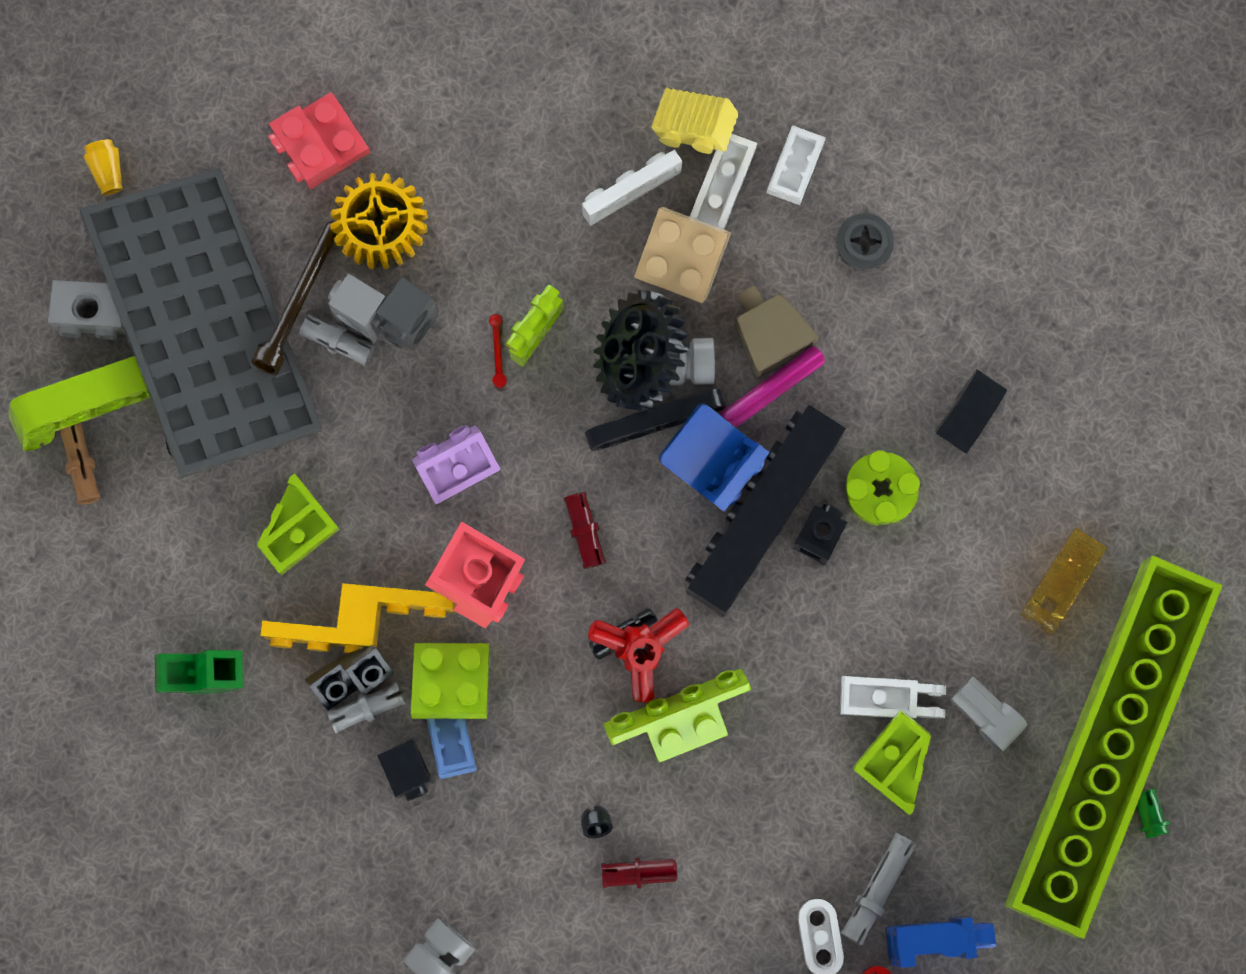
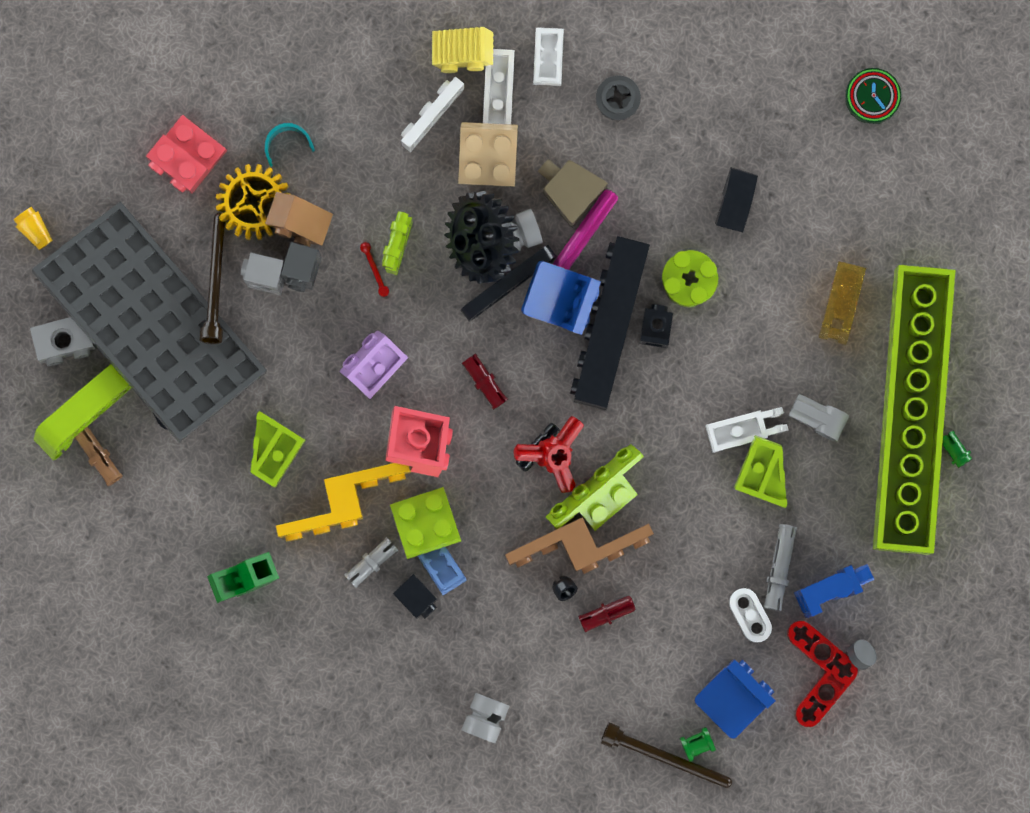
camera: 20 degrees left, 5 degrees up
(336, 340) = (253, 301): light grey pin -> none
(342, 677) = (355, 538): black slope -> none
(424, 256) = (298, 219): none -> medium nougat brick
(442, 145) = (281, 128): none -> teal helmet
(633, 775) = (579, 546): none -> medium nougat bracket
(1181, 341) = (873, 96): none -> tile

